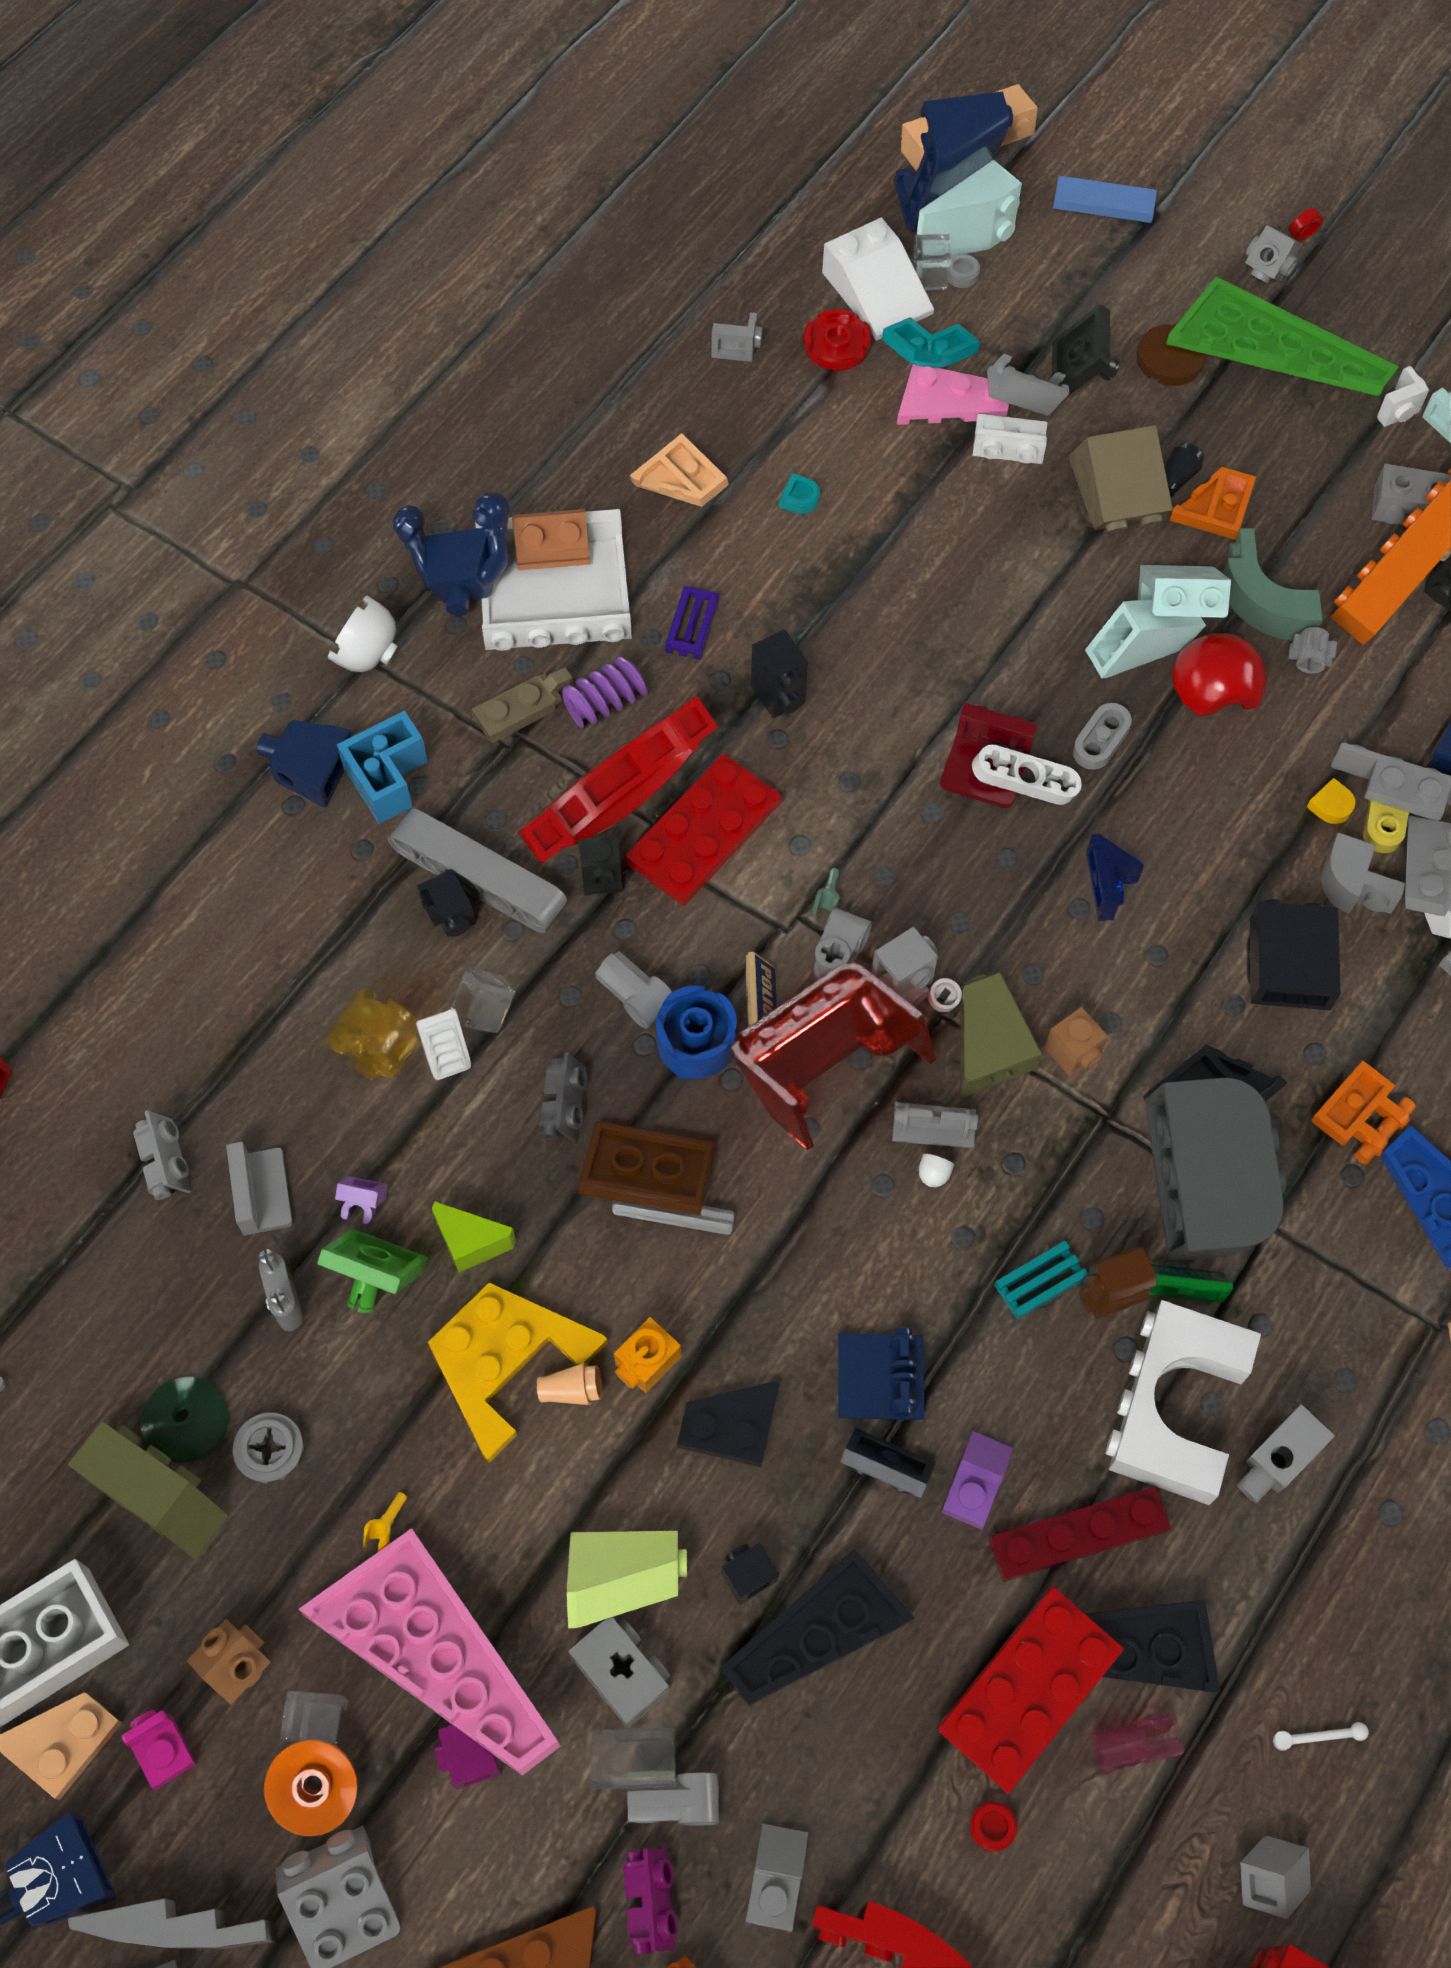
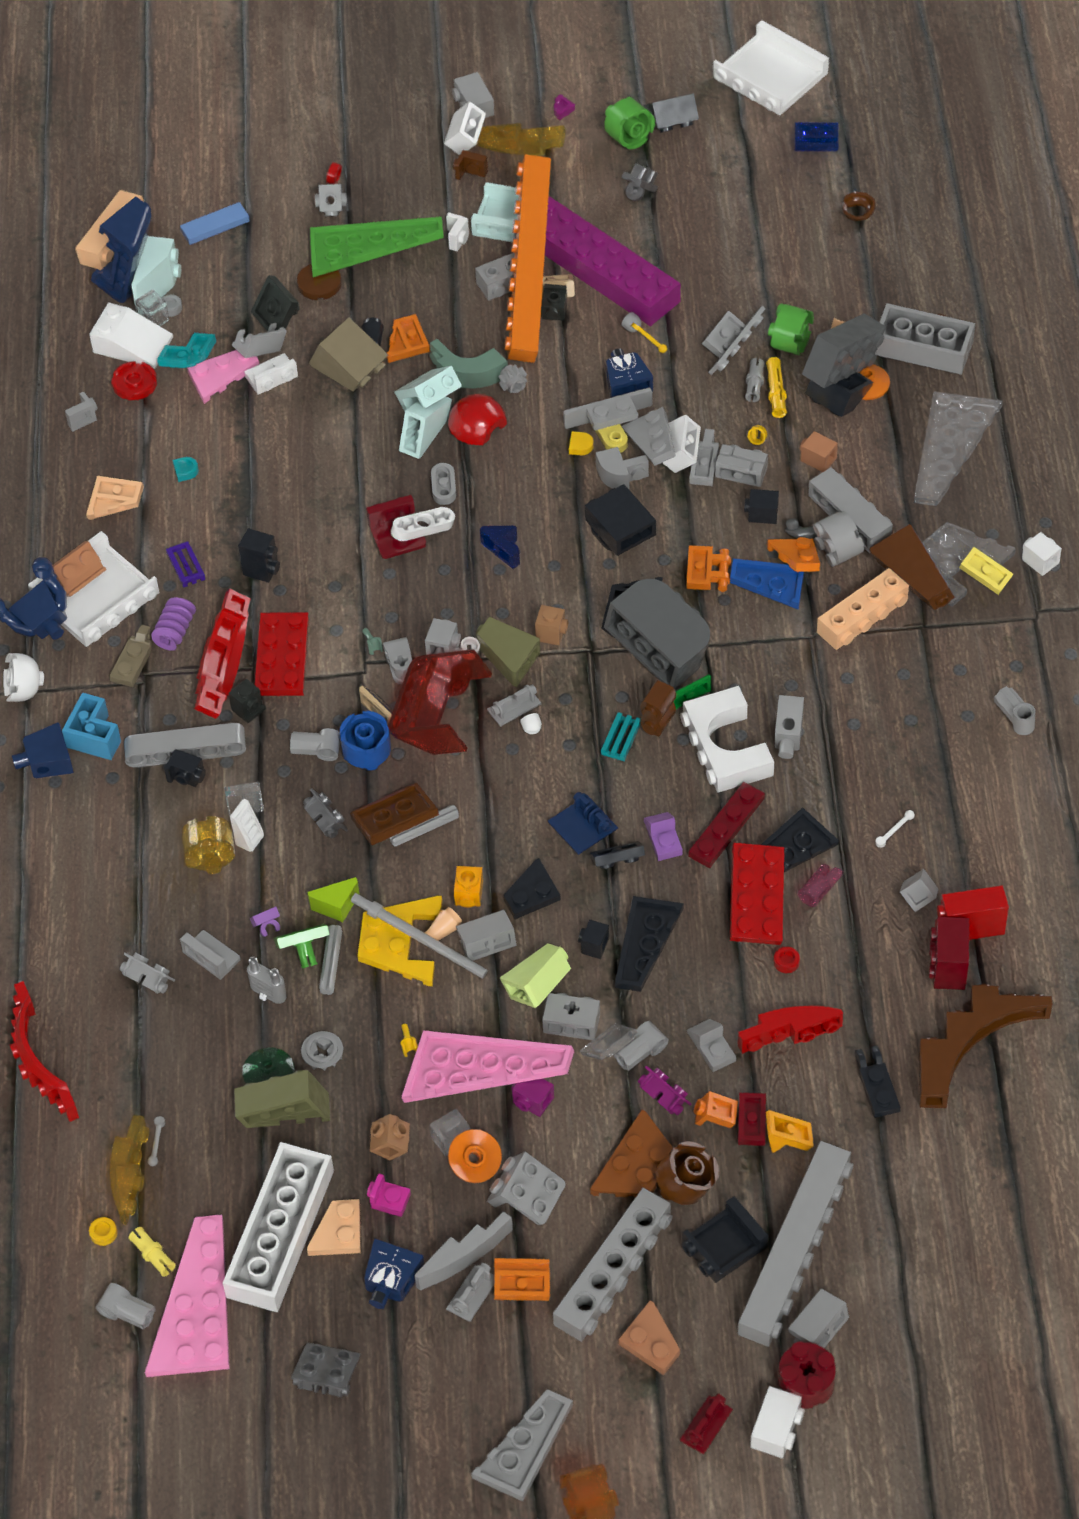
camera: 35 degrees left, 10 degrees down
(392, 1319) = (330, 960): none -> light grey axle
(495, 1299) = (376, 911): none -> light grey bar
(612, 1447) = (486, 935): none -> light grey hinge

